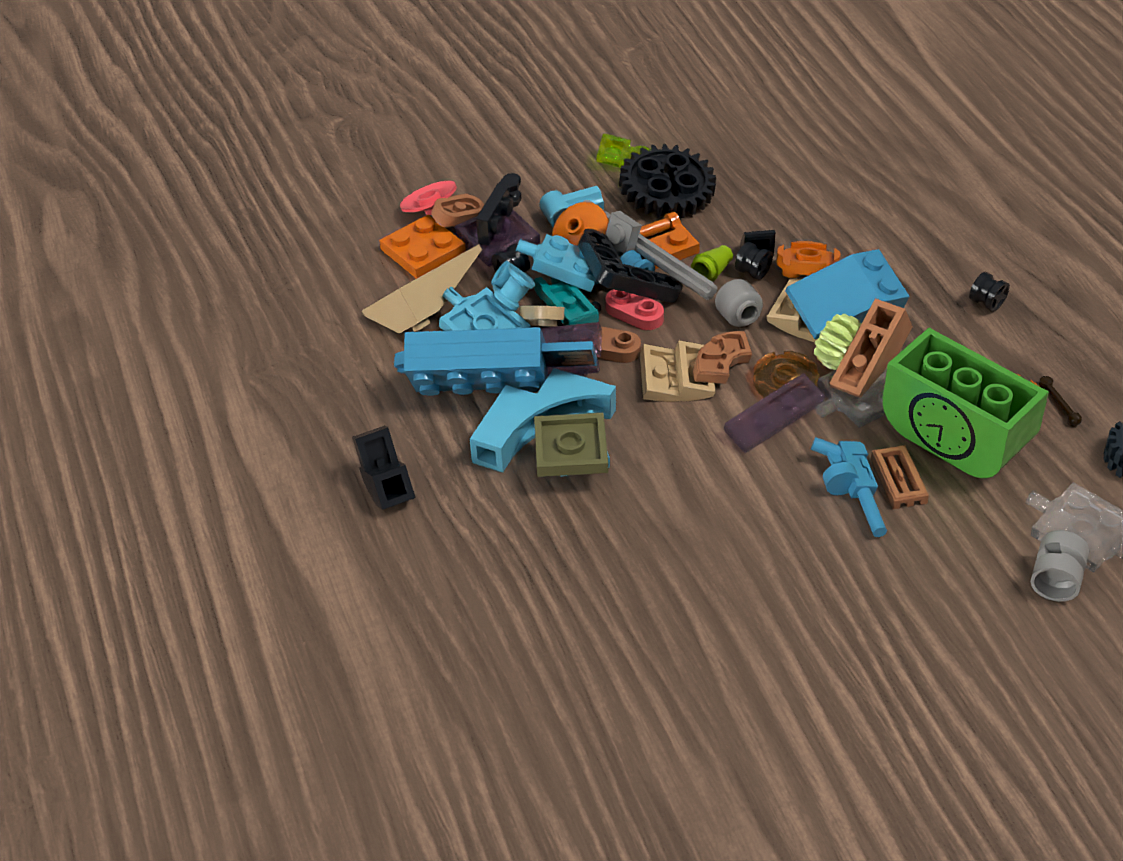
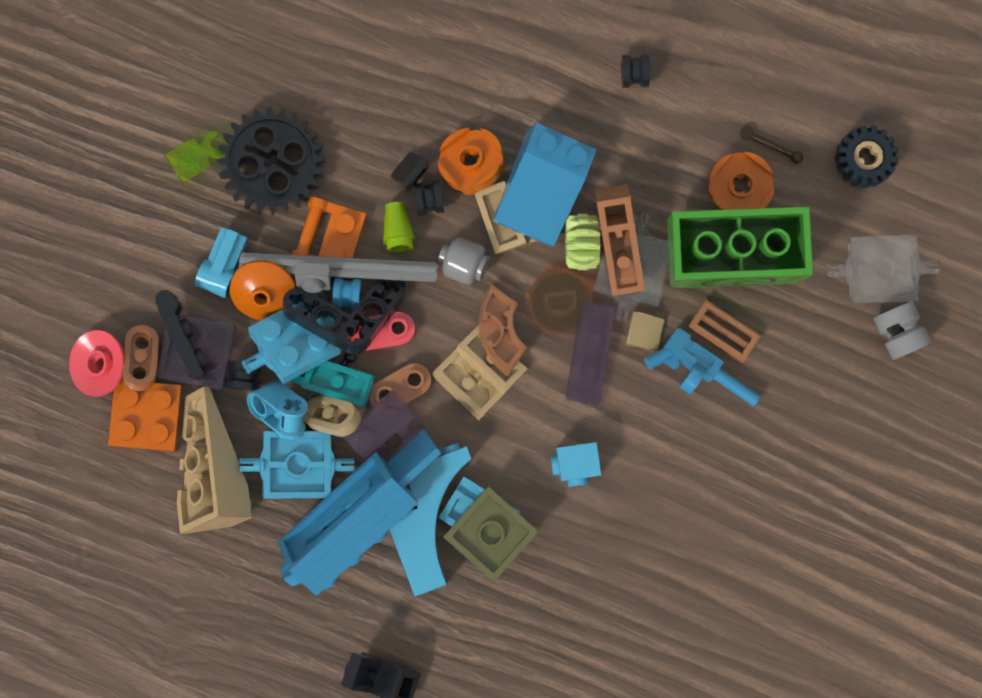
camera: 50 degrees left, 40 degrees up
(688, 462) = (576, 463): none -> medium azure brick
(831, 426) = (644, 331): none -> tan slope

